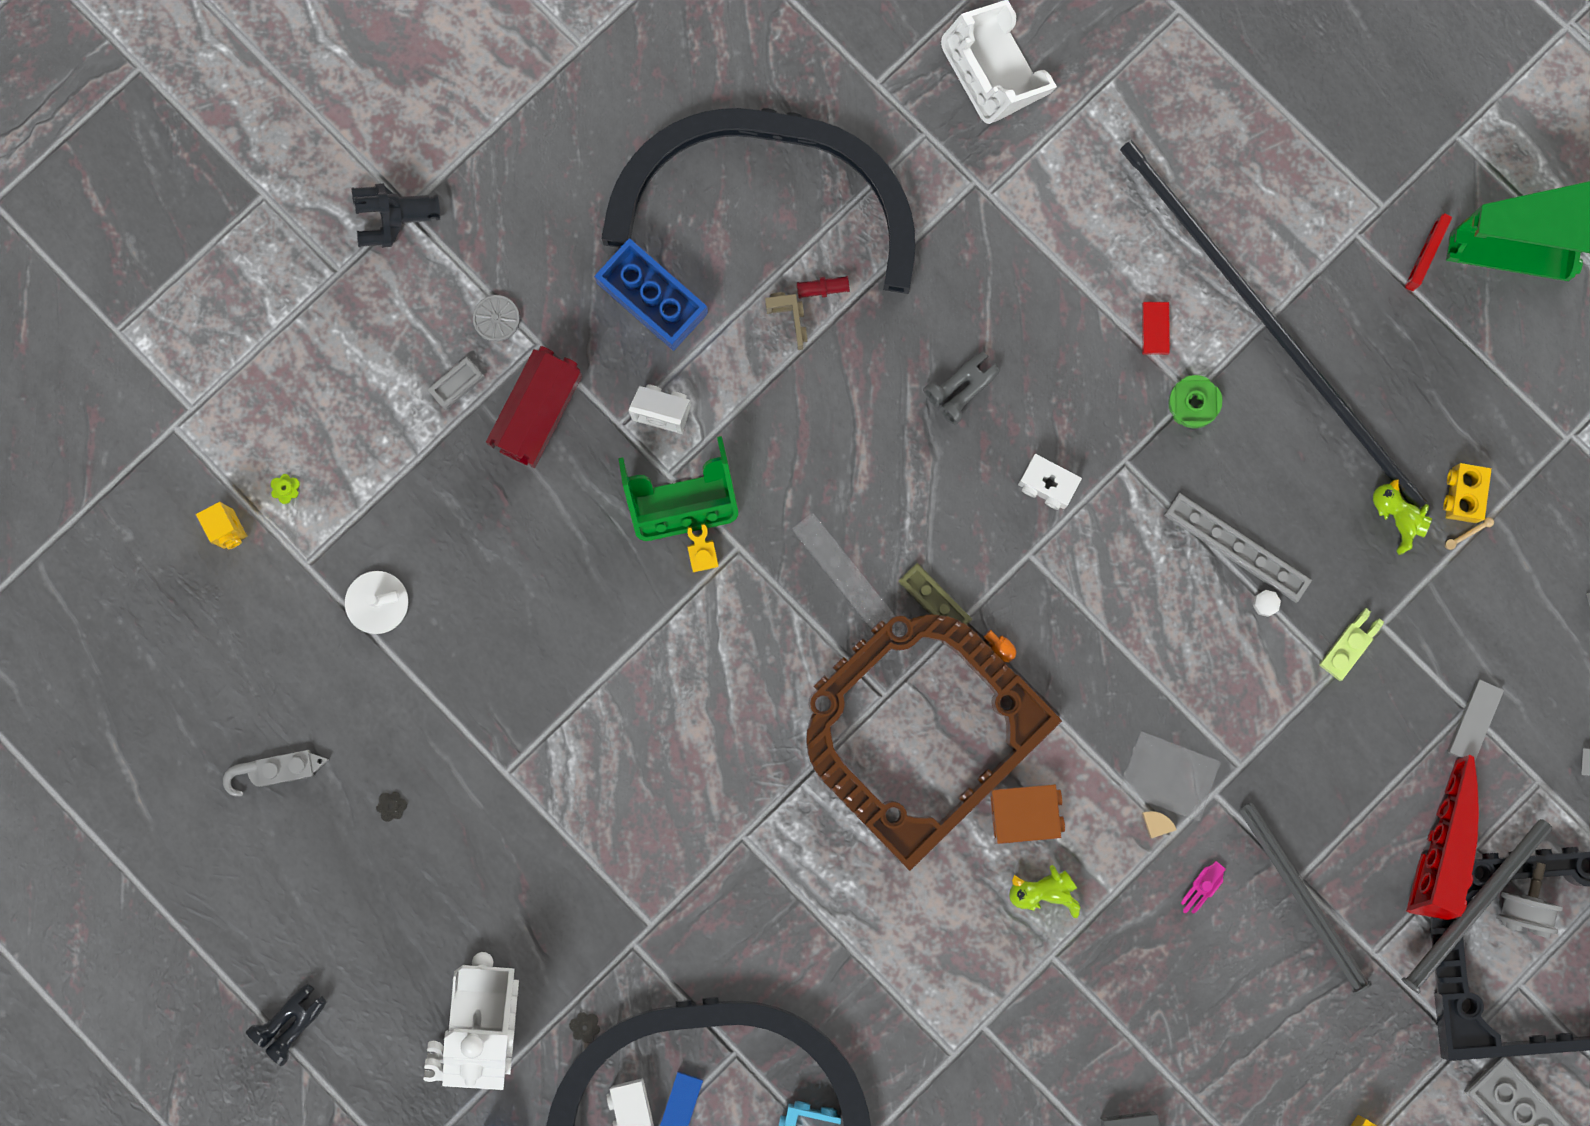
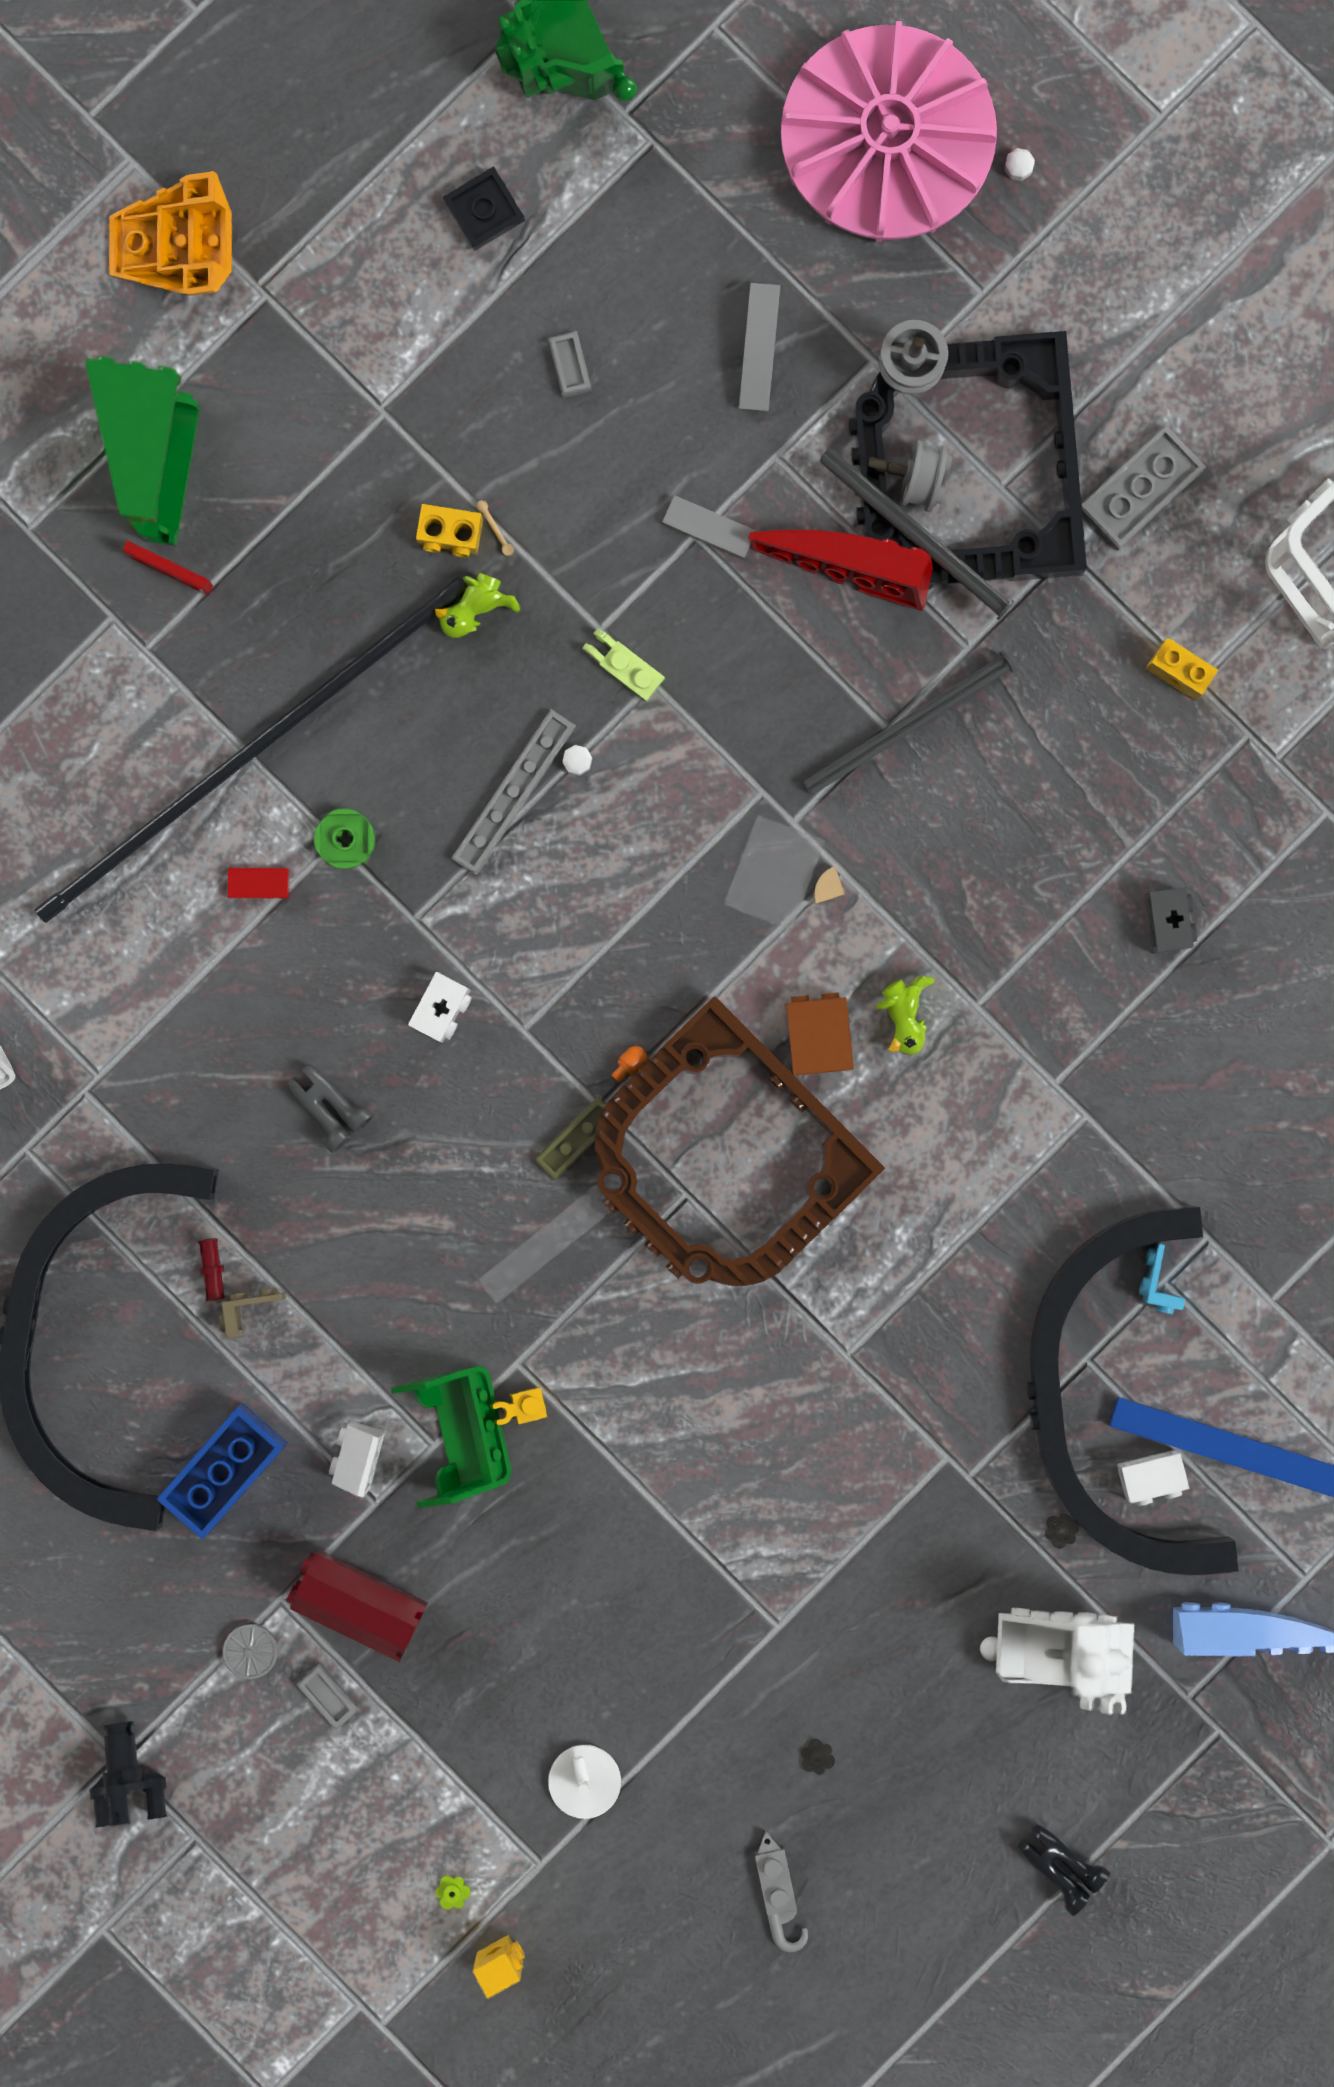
camera: 85 degrees left, 5 degrees up
(1205, 884) = (895, 833): dark pink piece -> none

